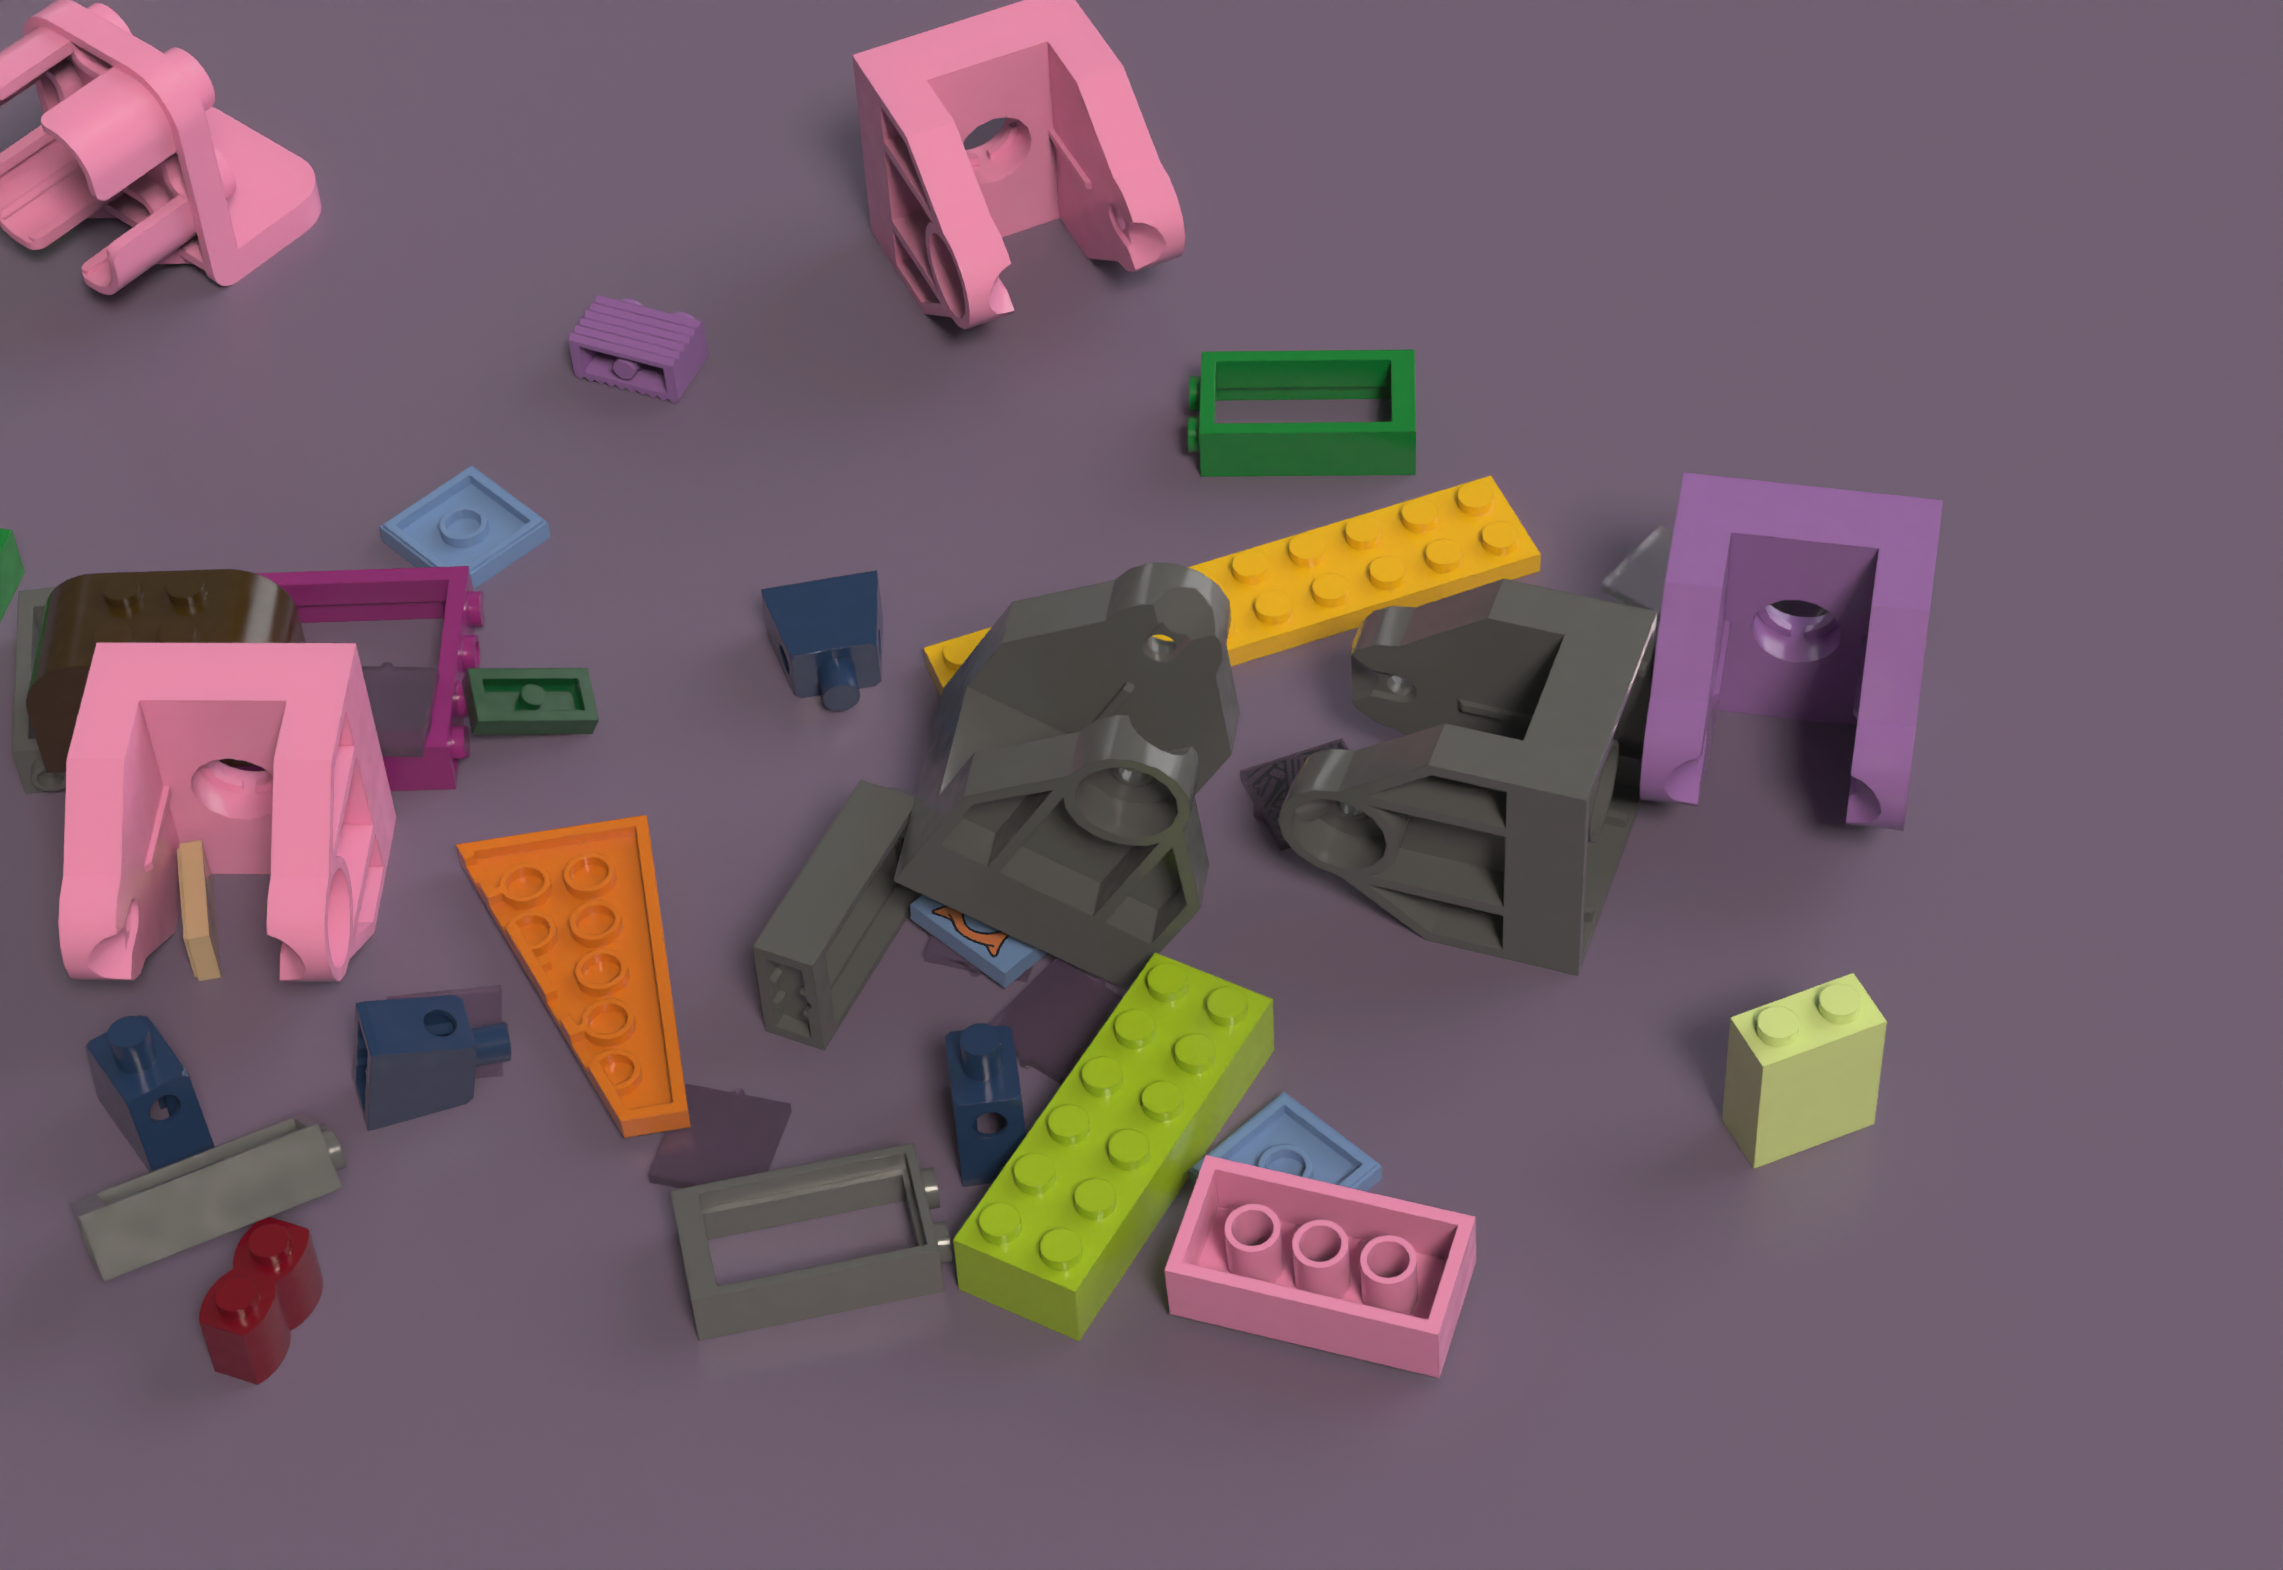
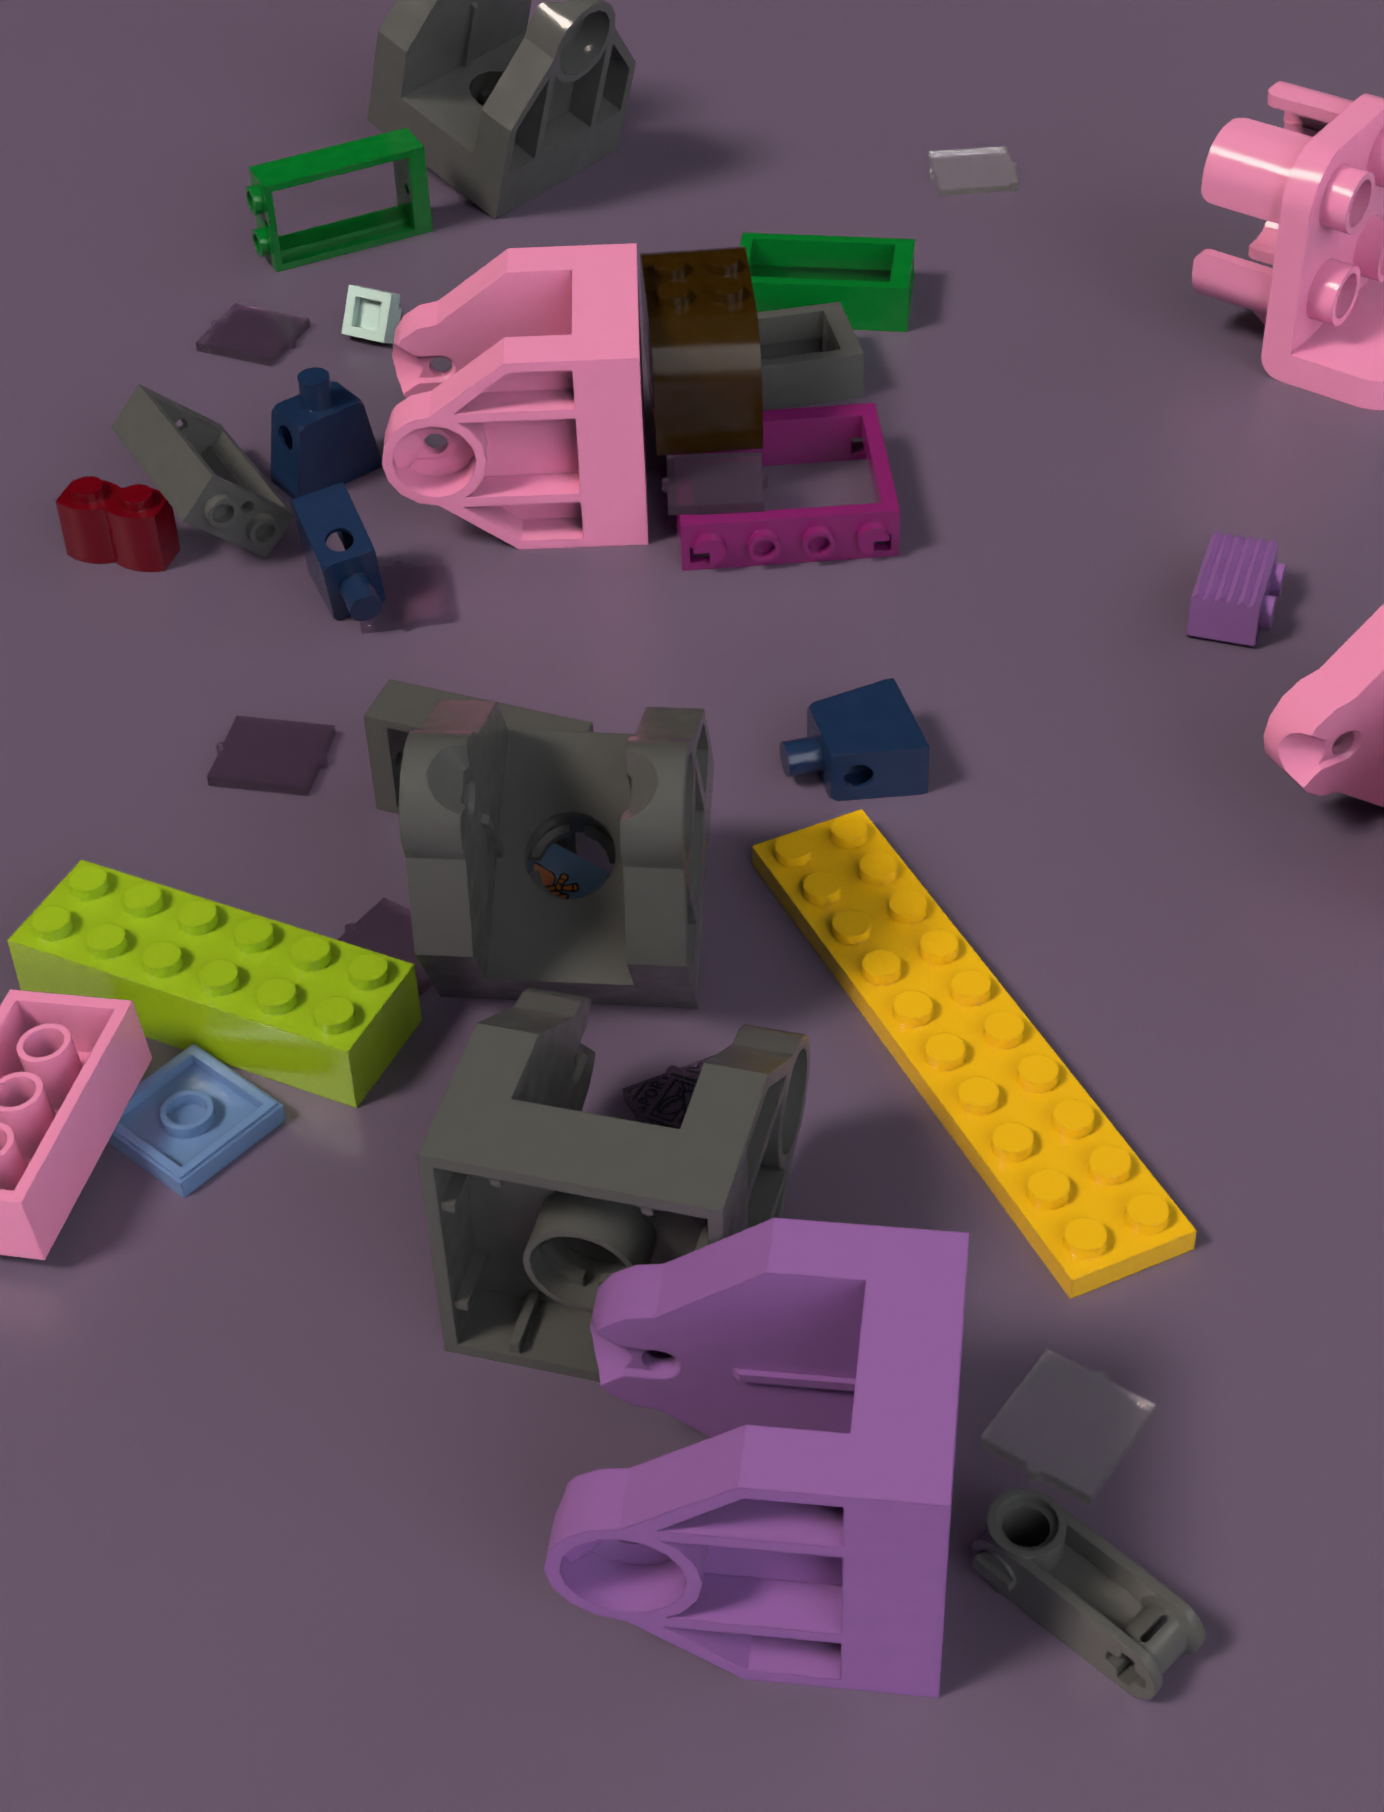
camera: 85 degrees right, 5 degrees down
(466, 525) = (983, 532): medium blue tile -> none
(529, 701) = (756, 575): dark green plate -> none
(593, 943) = (481, 650): orange wing -> none
(803, 1195) = (151, 740): dark grey window -> none
(982, 1082) = (270, 870): dark blue torso -> none
(1304, 446) = (1240, 1142): green window -> none
(1803, 1070) = (206, 1502): yellowish green brick -> none

